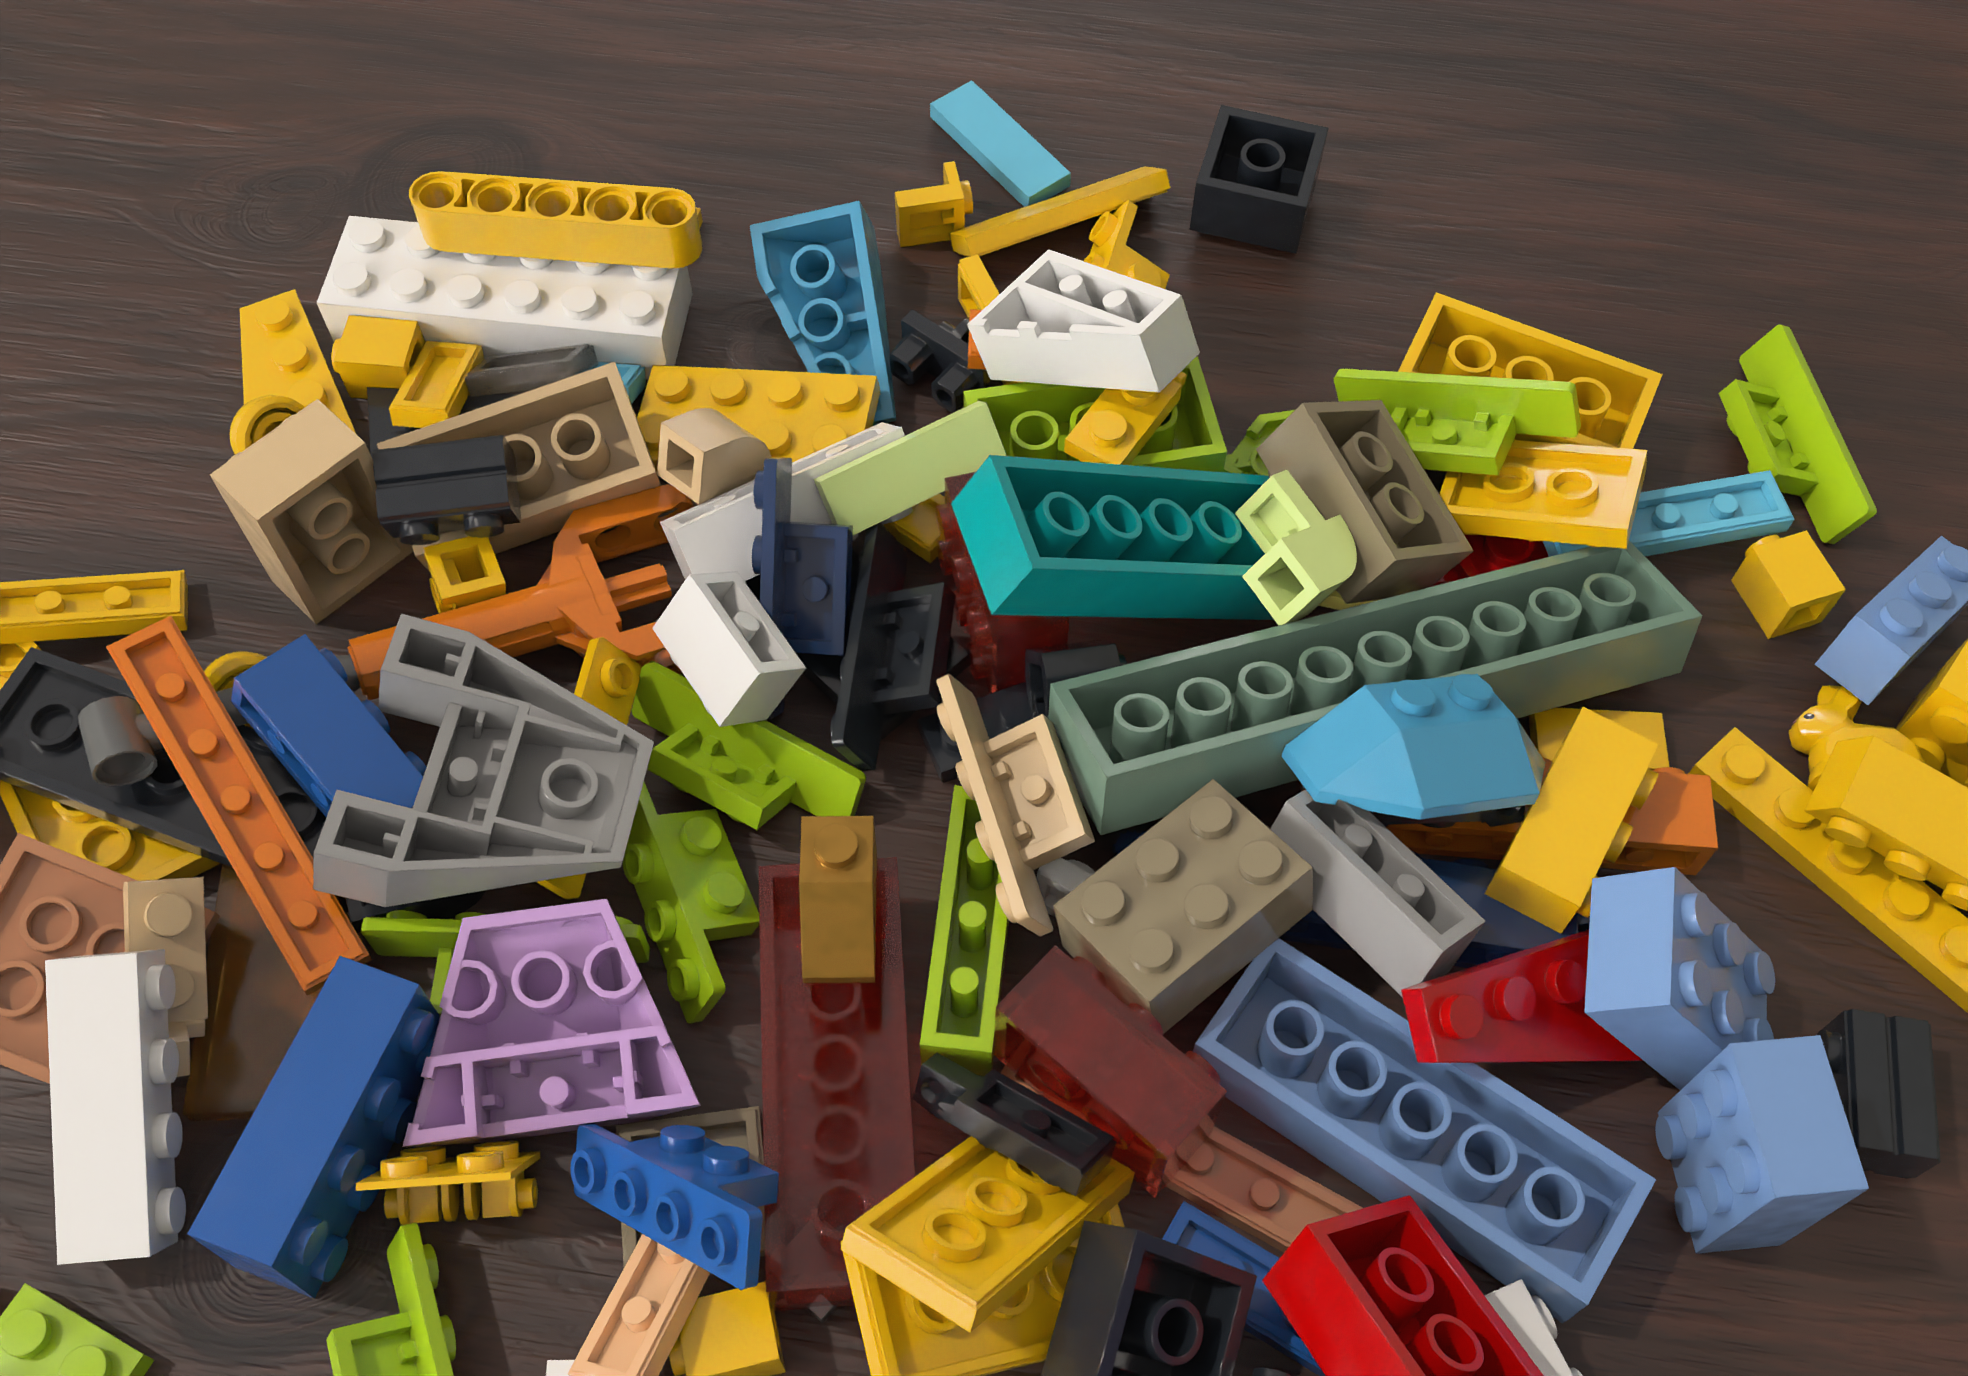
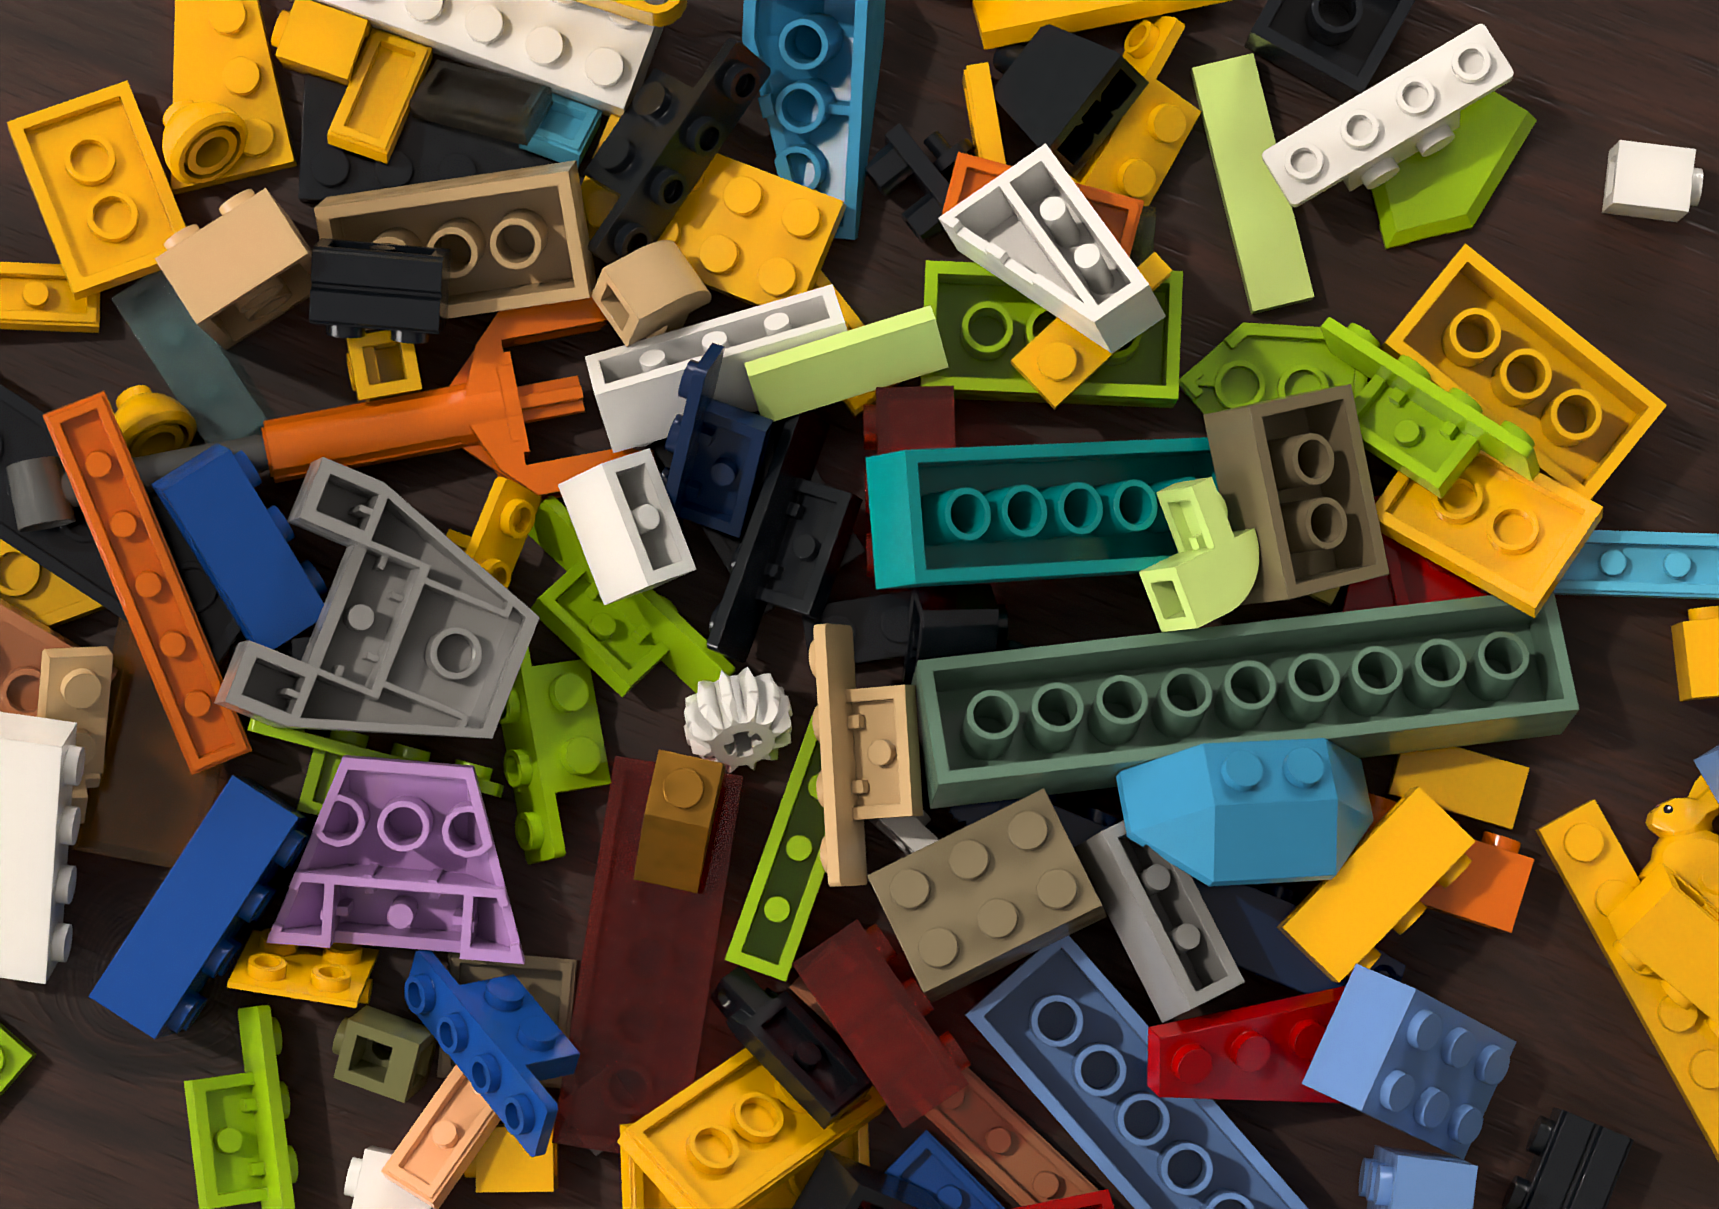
camera: 15 degrees right, 25 degrees up
(169, 504) = (98, 187): none -> yellow plate
(260, 611) = (189, 360): none -> clear light blue tile
(530, 1258) = (370, 1067): none -> olive brick
(711, 347) = (667, 145): none -> black bracket
(898, 803) = (738, 719): none -> white gear
(1072, 230) = (1065, 92): none -> black torso
(1232, 321) = (1254, 205): none -> yellowish green tile
(1337, 227) = (1390, 120): none -> white bracket
(1382, 271) = (1454, 184): none -> lime tile
(1564, 249) = (1651, 181): none -> white brick

